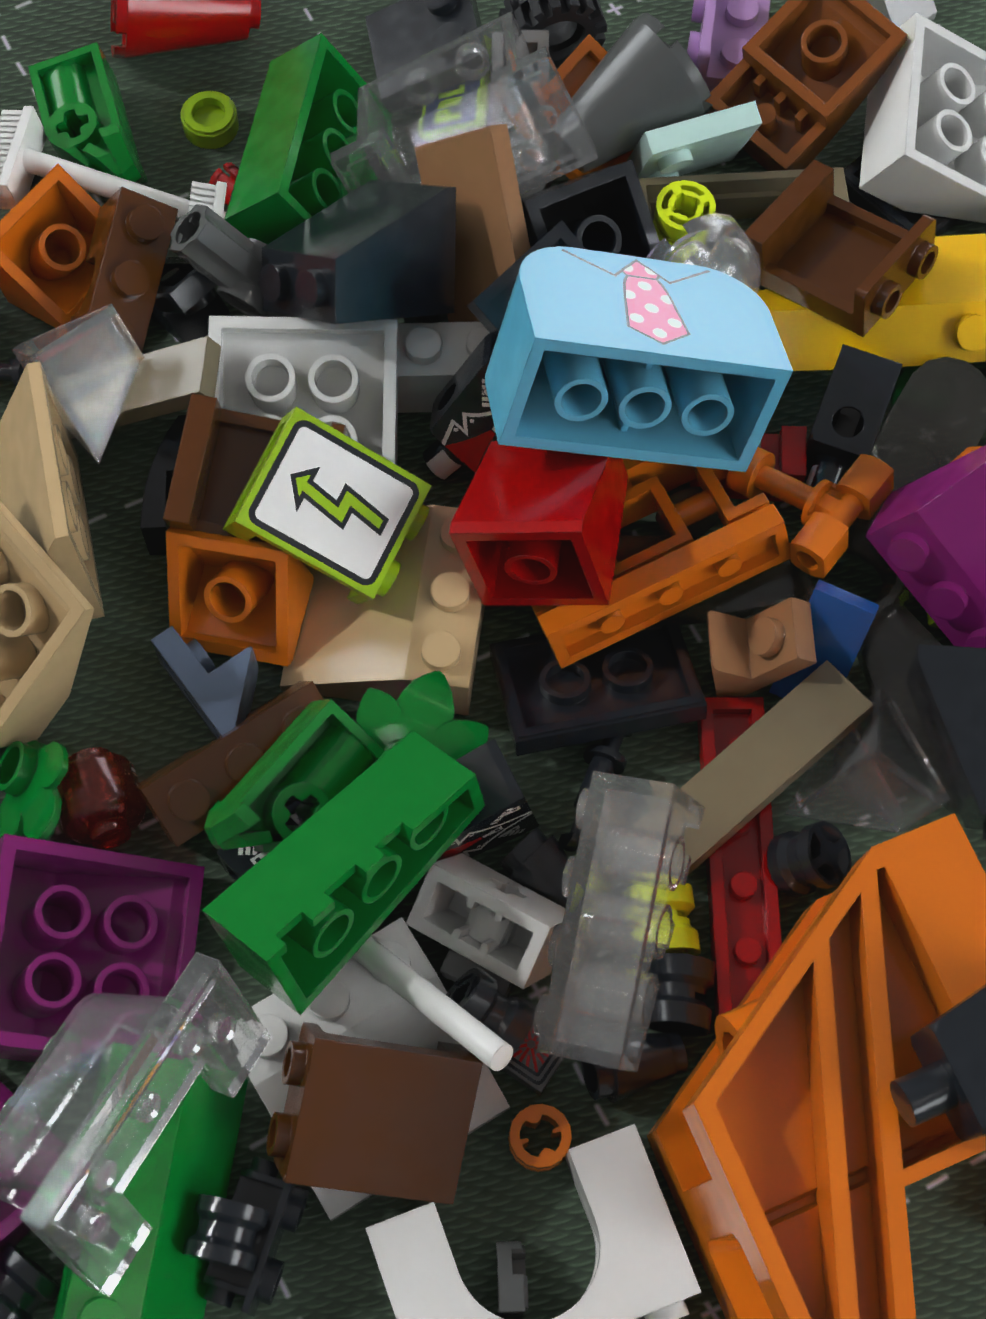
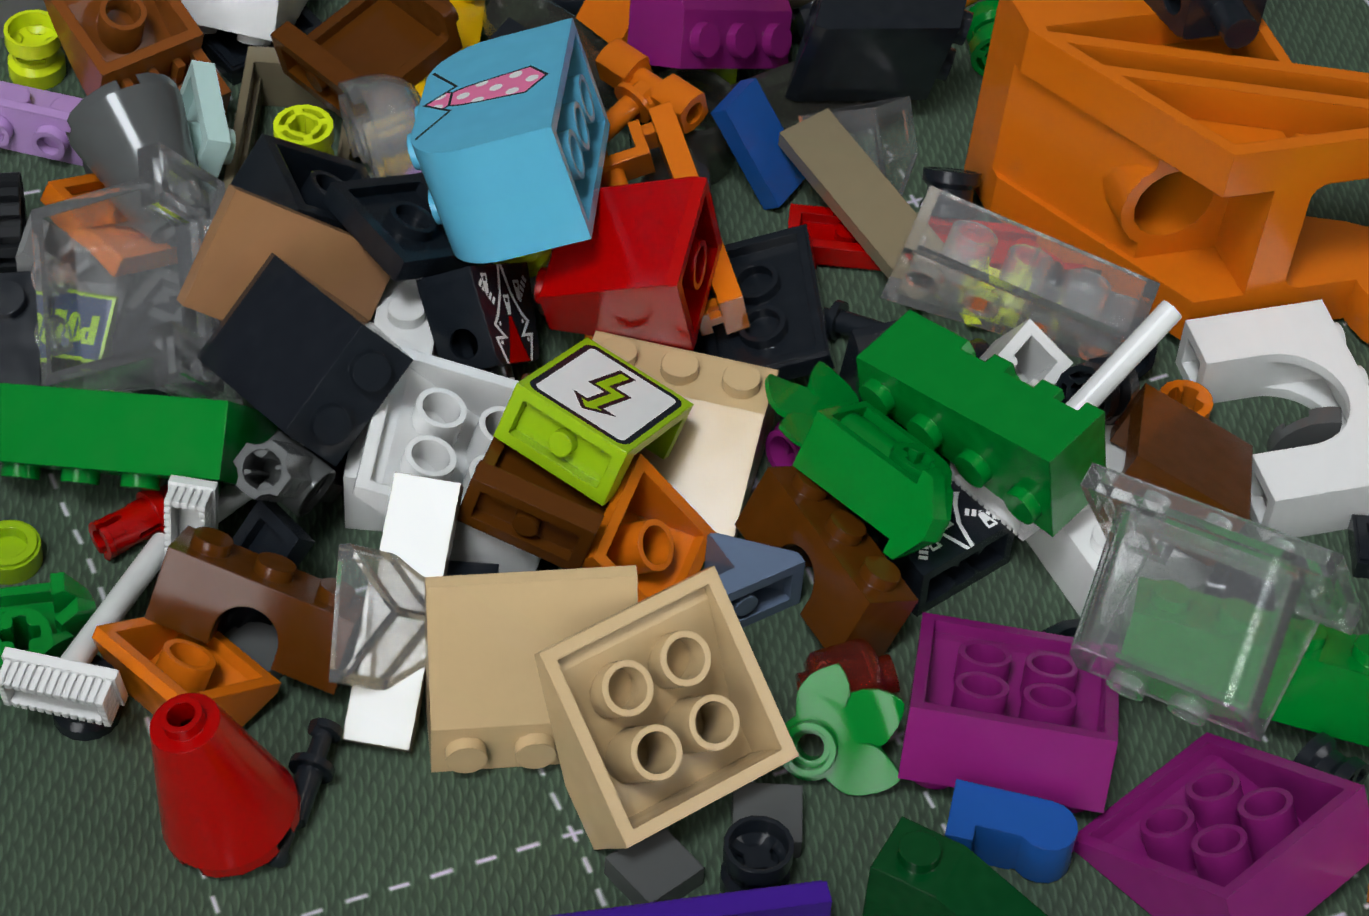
camera: 85 degrees left, 20 degrees down
(760, 648) = (757, 180): medium nougat slope -> none

